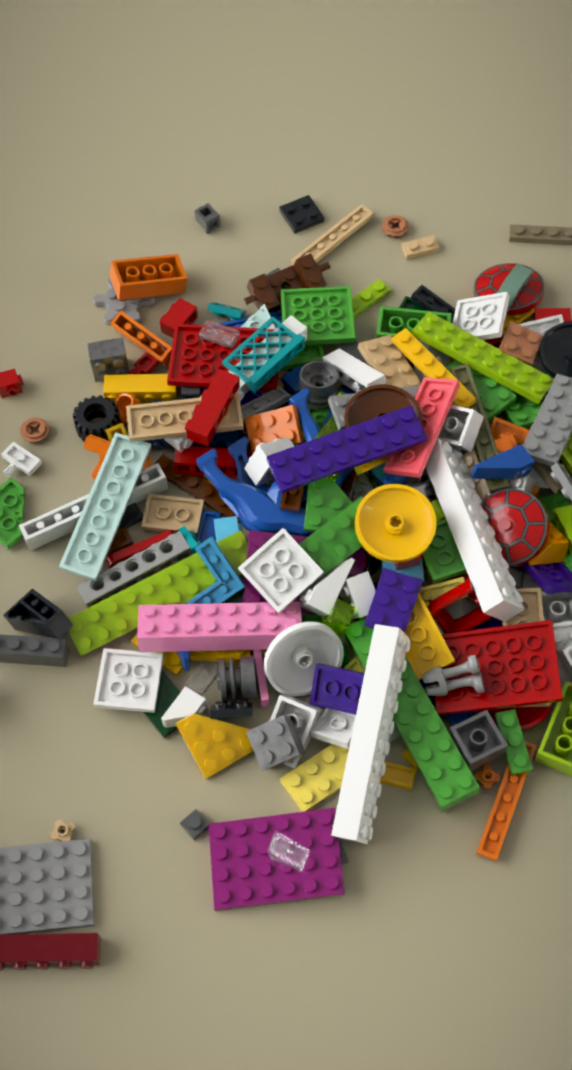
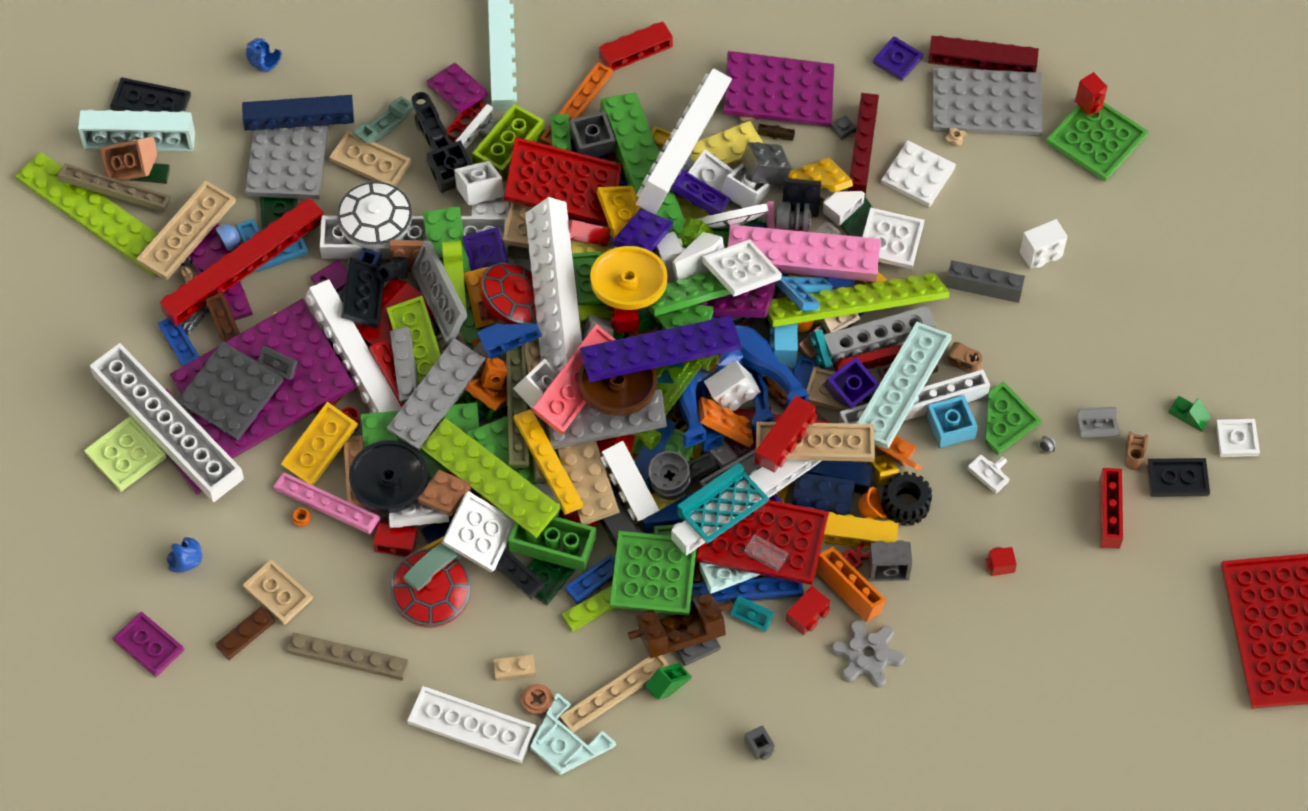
camera: 175 degrees left, 0 degrees up
(34, 424) = (973, 498): nougat gear -> none
(38, 616) = (970, 299): black wedge -> none
(45, 565) = (964, 357): none -> medium nougat piece
(55, 490) = (951, 421): none -> medium azure brick
(104, 777) = (918, 173): none -> white plate
(137, 930) = (897, 58): none -> dark purple plate
(148, 277) = (837, 655): orange brick -> none
(157, 504) = (851, 384): none -> dark purple slope
(169, 798) = (863, 141): none -> dark red brick
(271, 803) = (776, 132): none -> dark brown pin
(287, 851) = (770, 78): clear slope -> none
(289, 247) = (667, 680): none -> green slope
(301, 214) = (644, 738): black plate -> none
(364, 192) = (560, 746): none -> light aqua wing
(369, 318) = (591, 579): none -> blue plate
(443, 200) = (471, 724): none -> white plate
(444, 685) = (614, 175): light grey piece -> none
(456, 892) = (636, 46): none -> red brick

